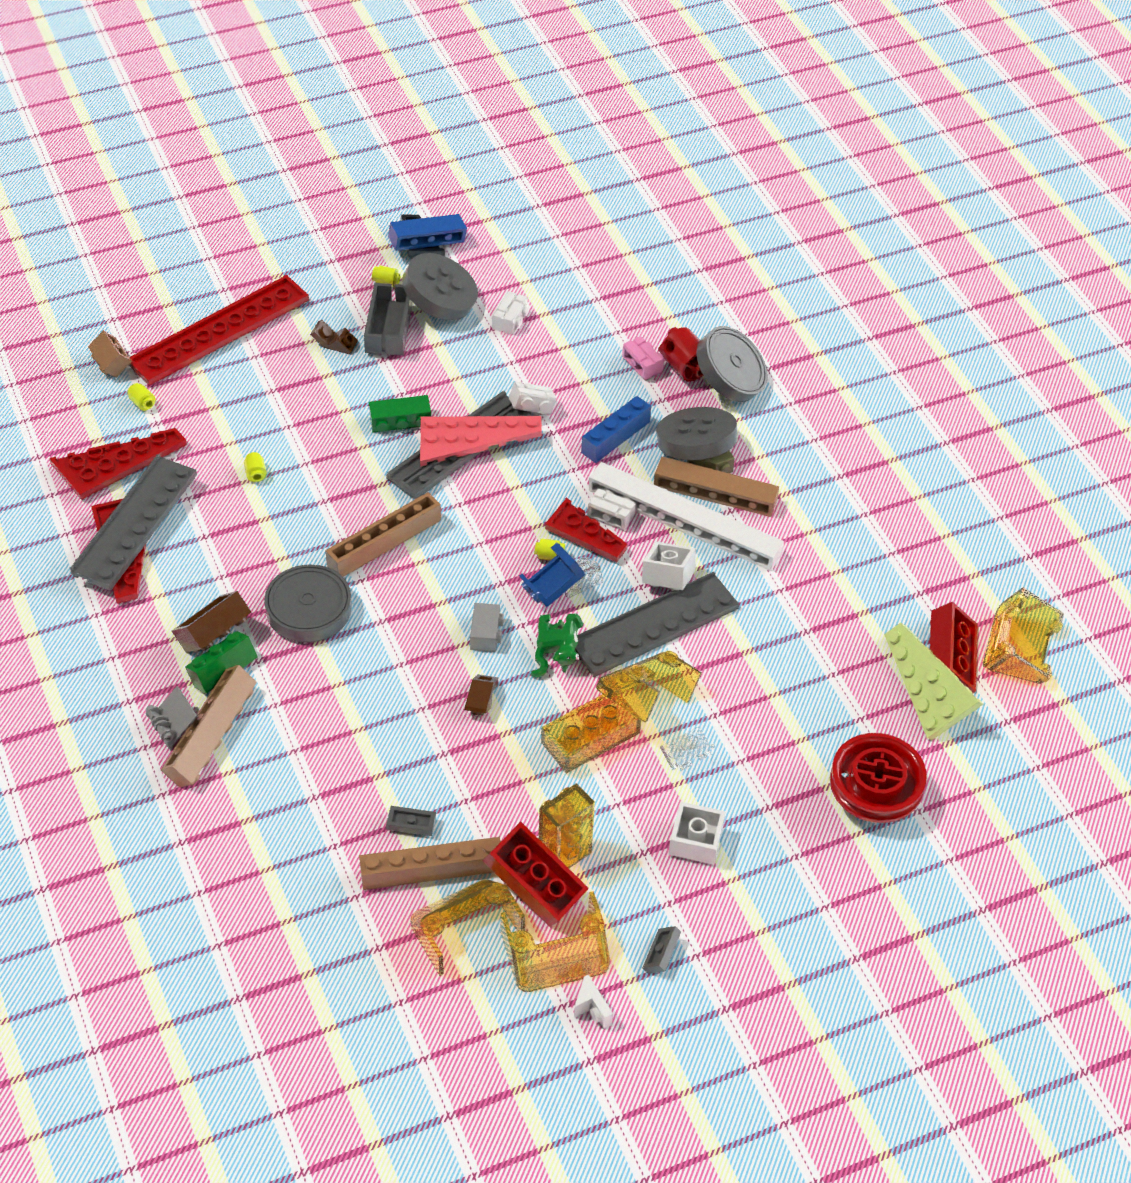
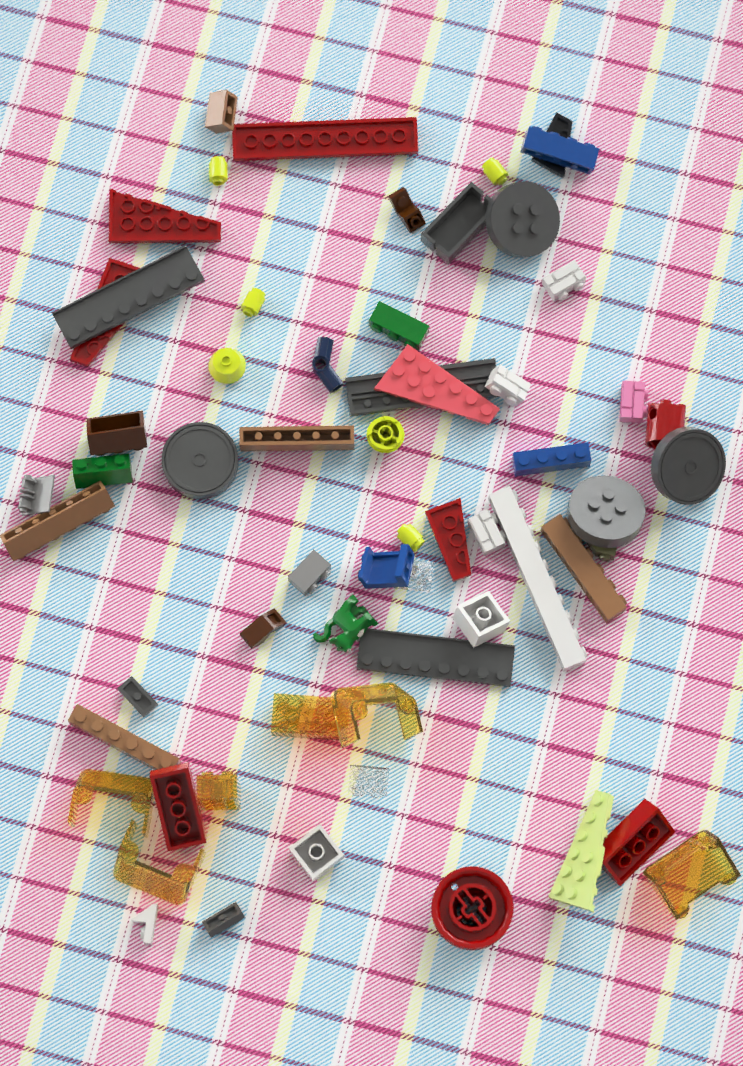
camera: 40 degrees right, 25 degrees up
(270, 522) = (227, 365): none -> neon yellow cone
(358, 476) = (323, 355): none -> dark blue piece
(460, 488) = (385, 434): none -> neon yellow cone

